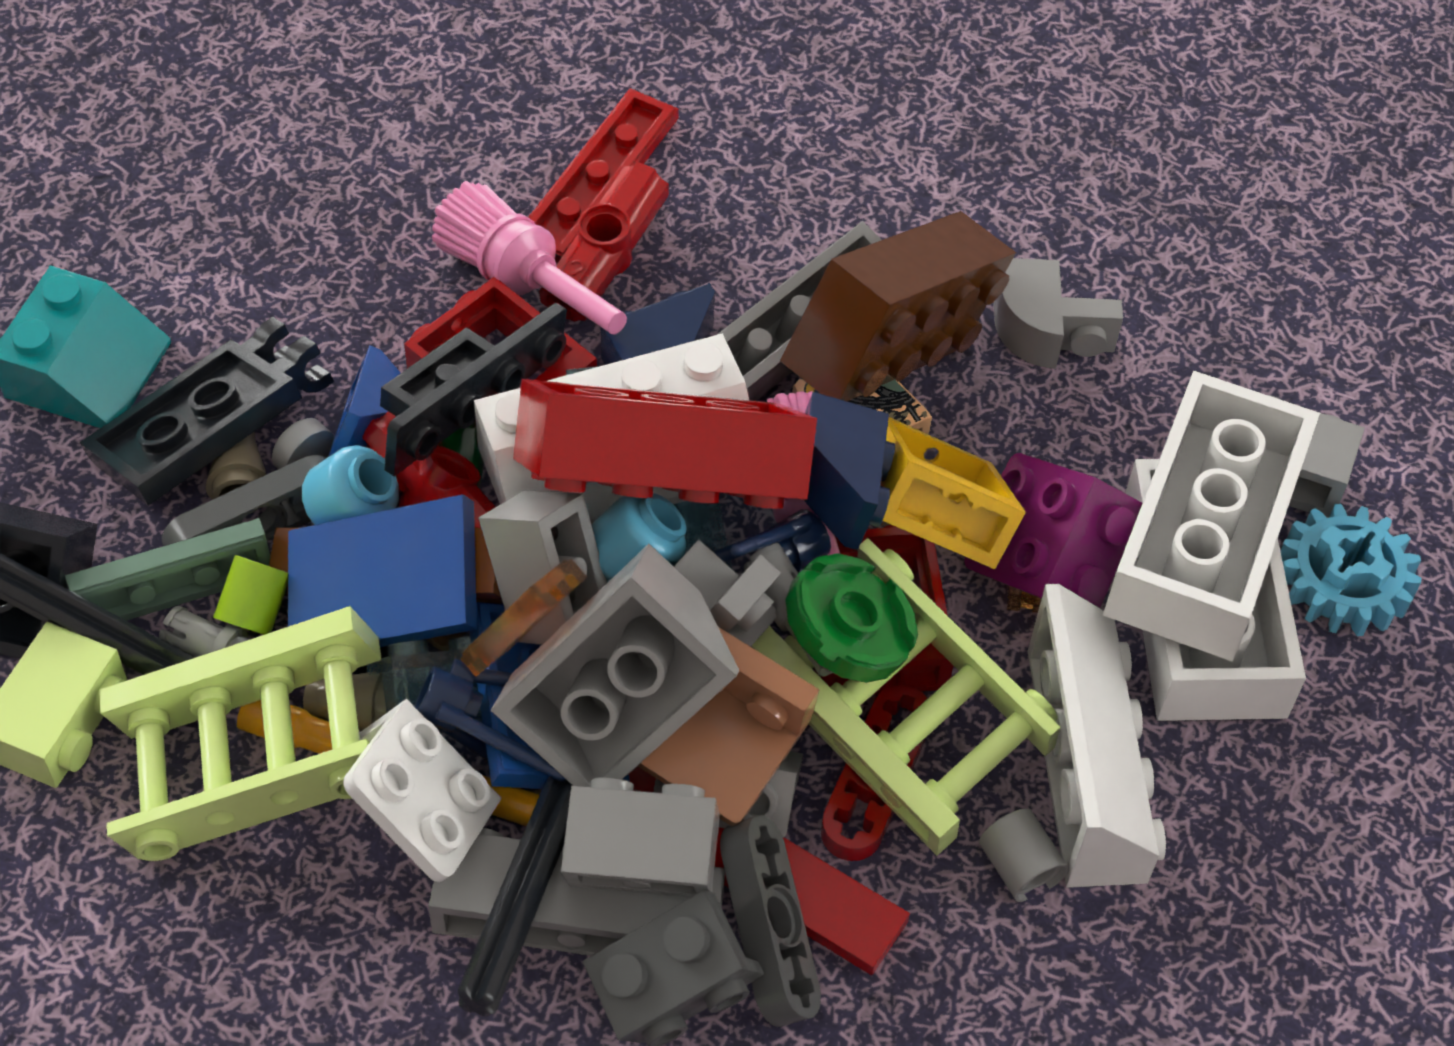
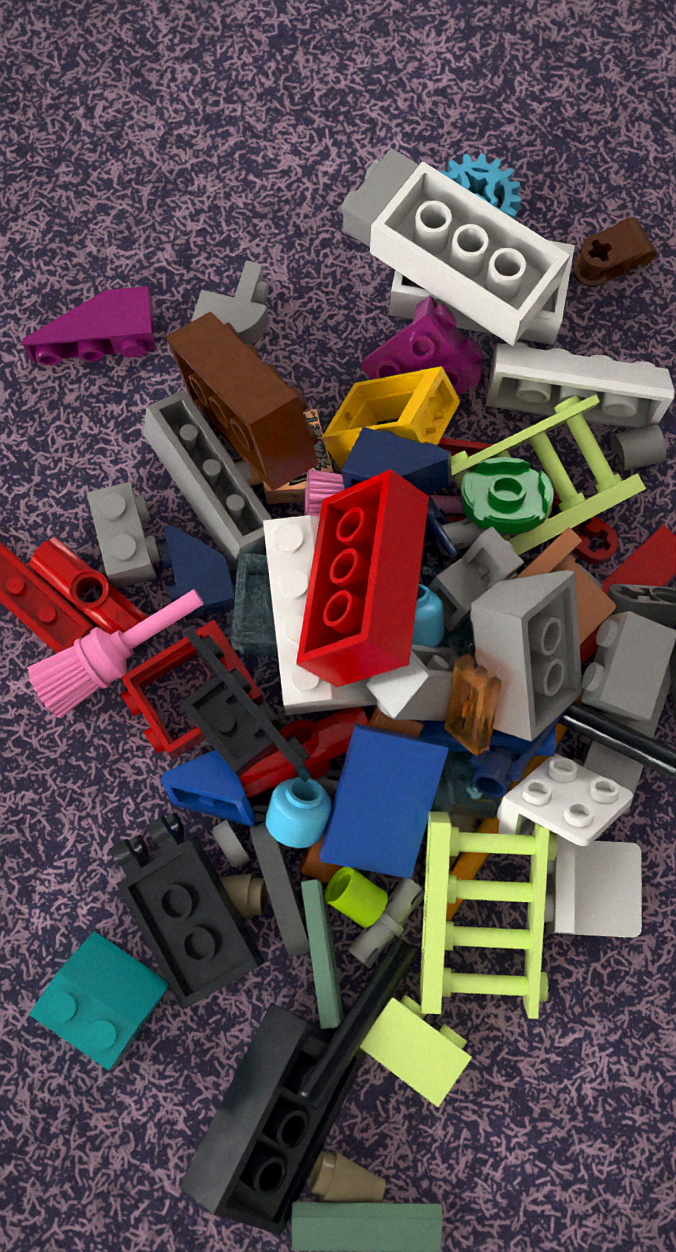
camera: 75 degrees left, 20 degrees up
(312, 890) = (594, 889): none -> white bracket
(690, 249) = (122, 535): none -> light grey brick
(971, 174) = (101, 326): none -> magenta slope
(1340, 771) = (613, 253): none -> reddish brown piece

